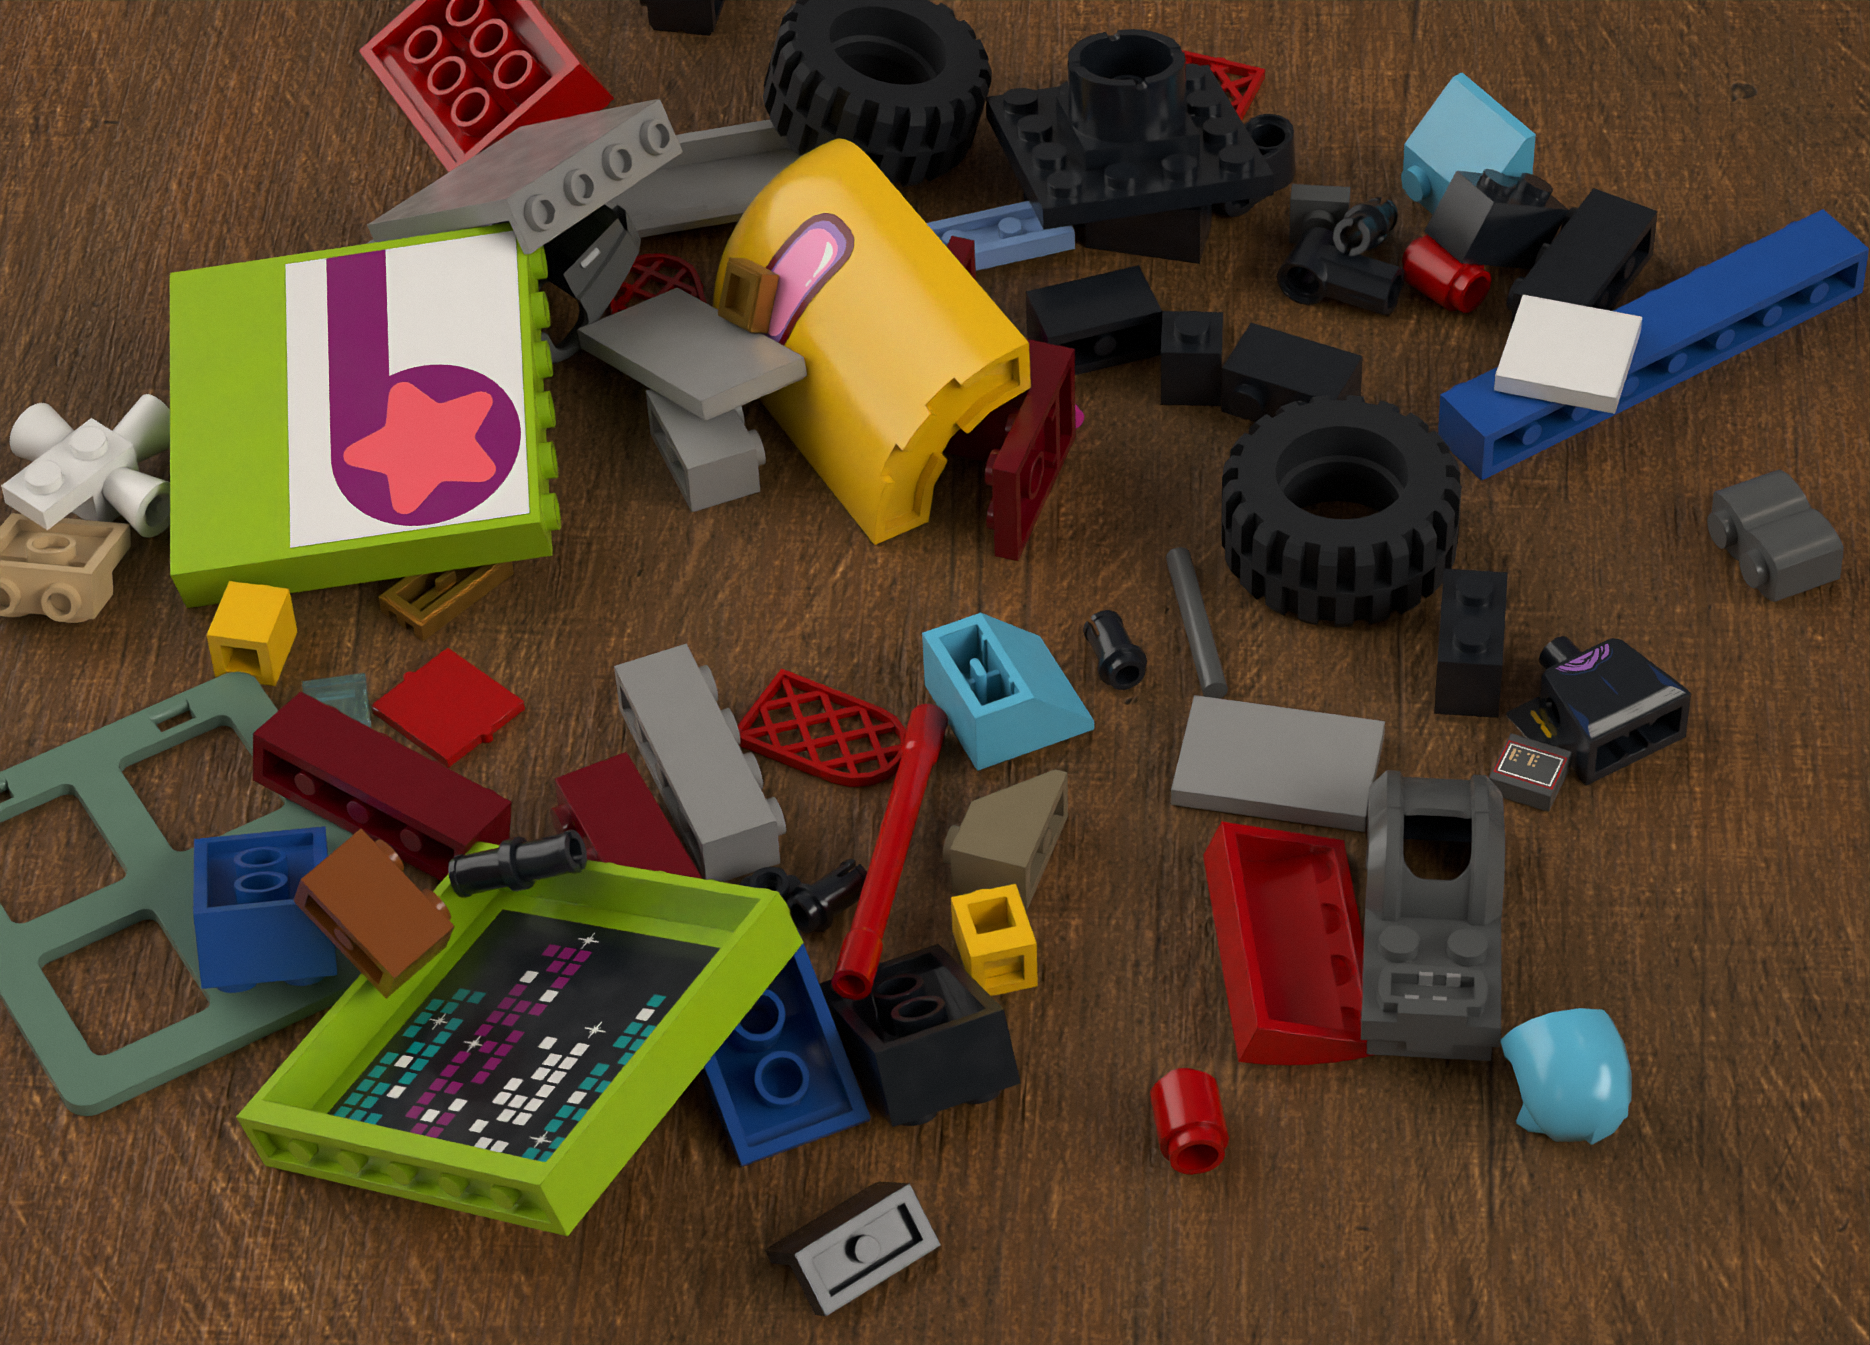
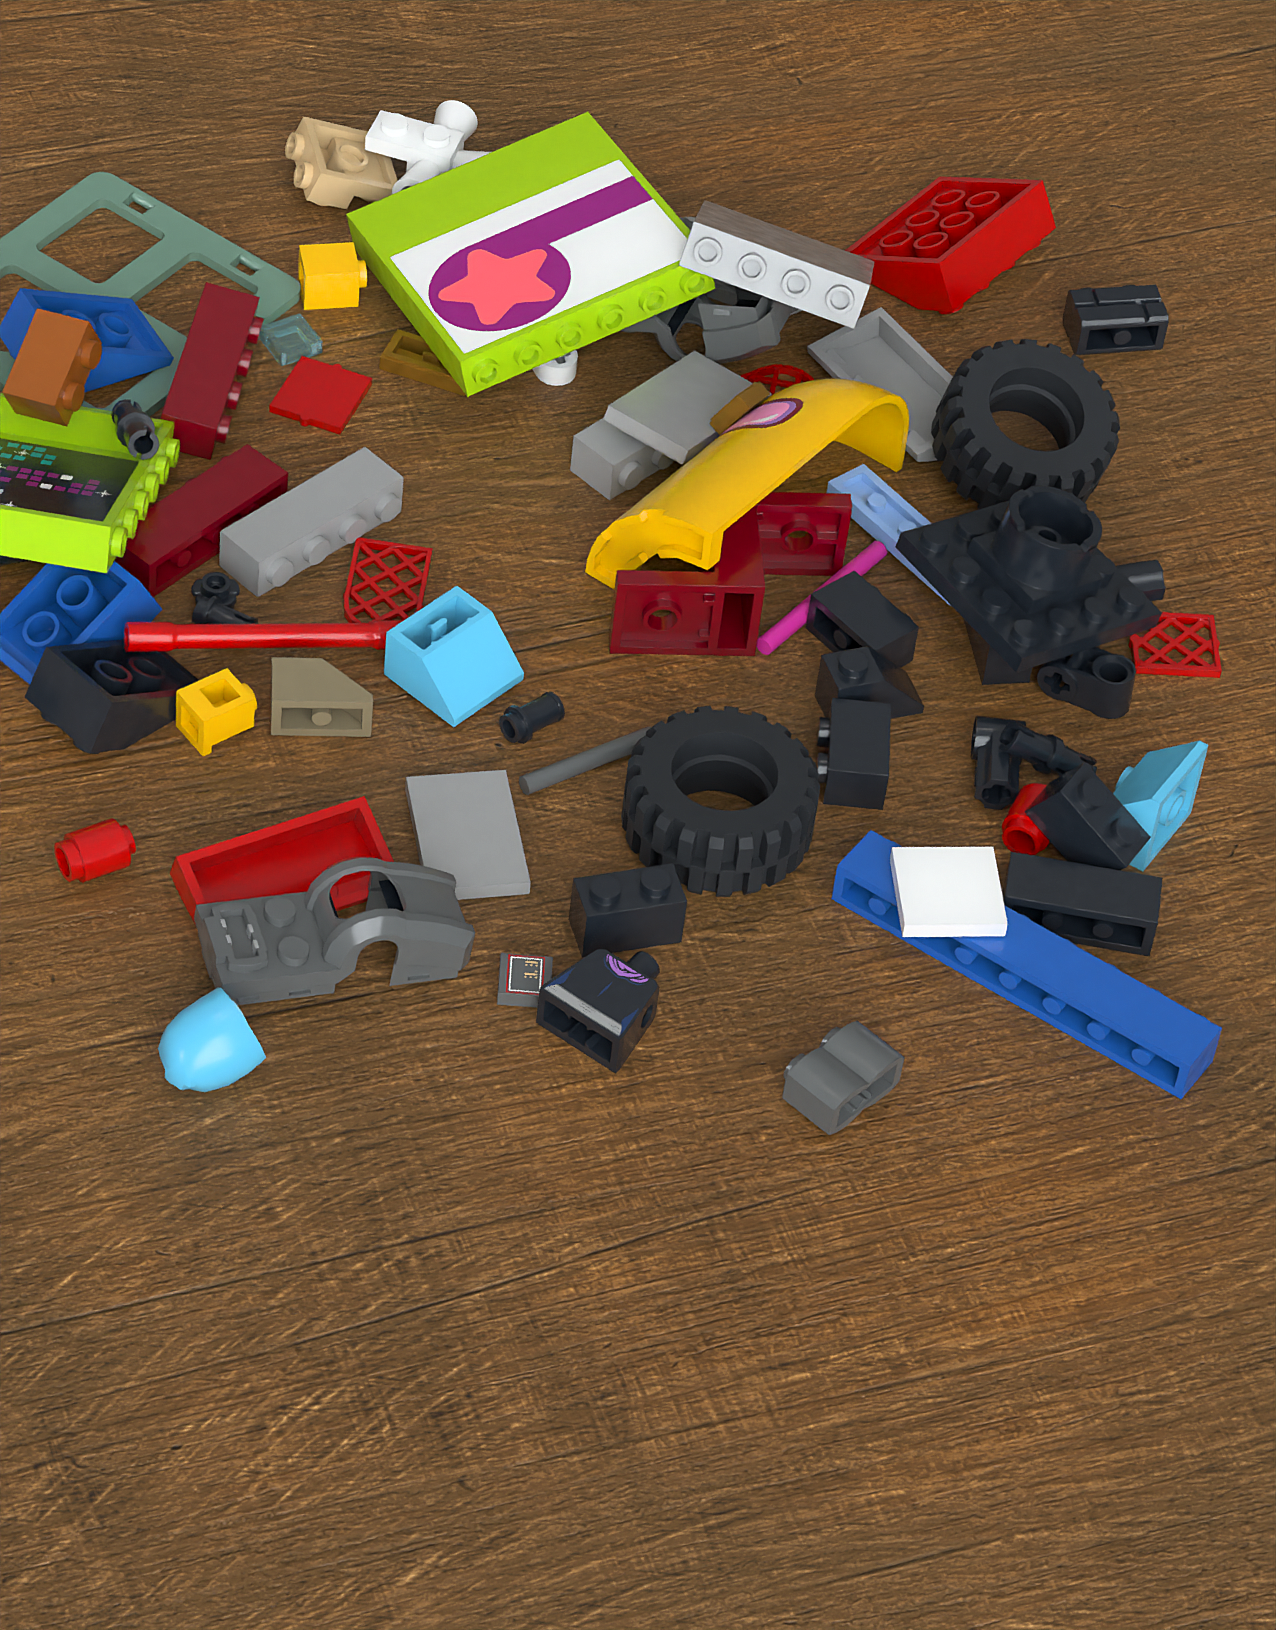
camera: 60 degrees right, 0 degrees up
(1316, 207) = (1056, 720): dark grey plate -> none

